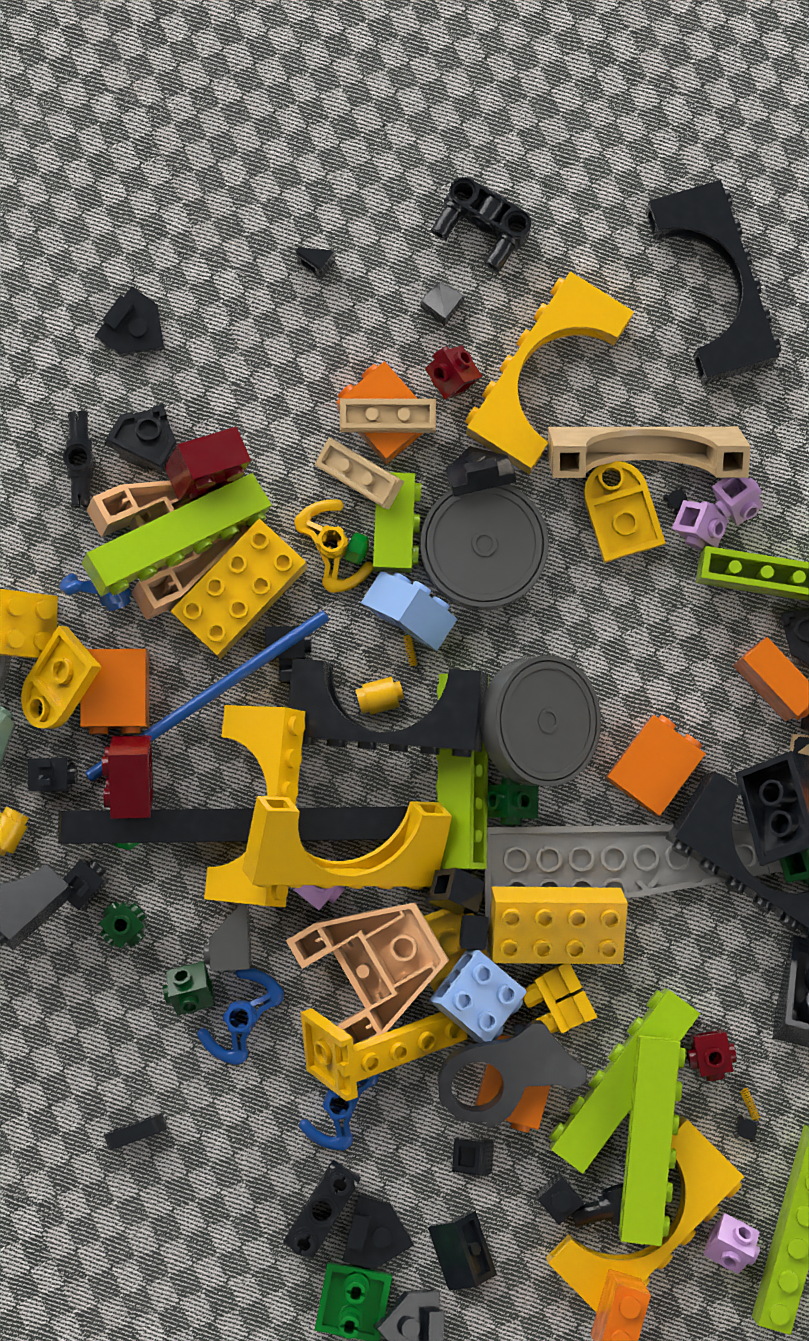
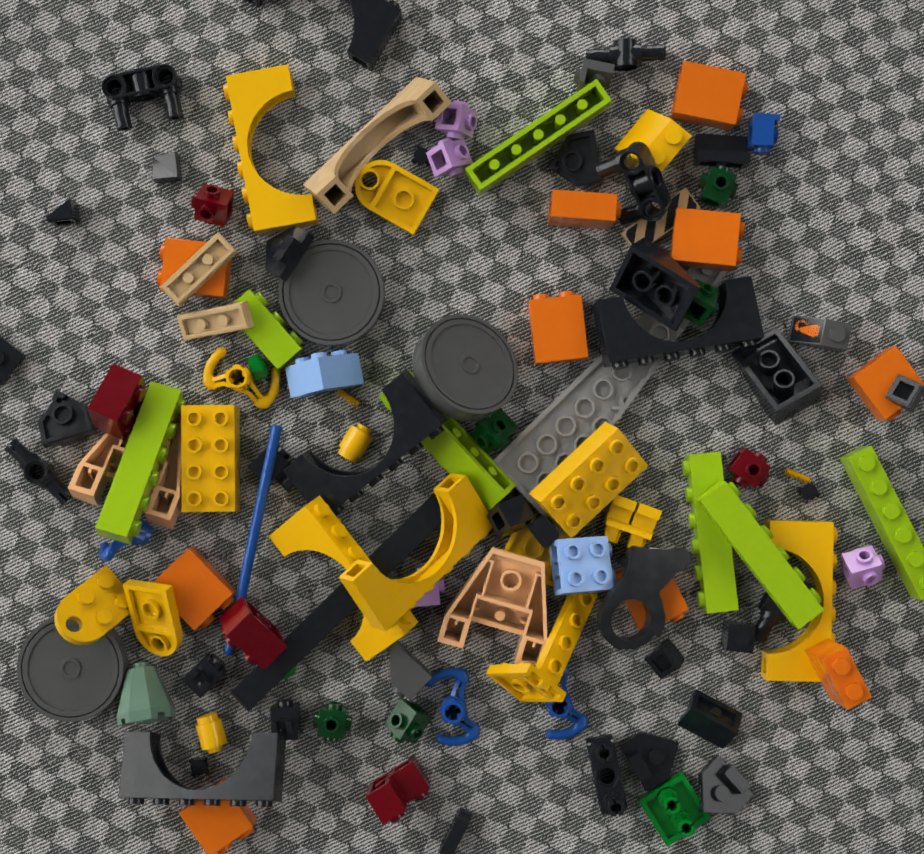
camera: 40 degrees left, 5 degrees up
(122, 1040) = (396, 788): none -> dark red brick

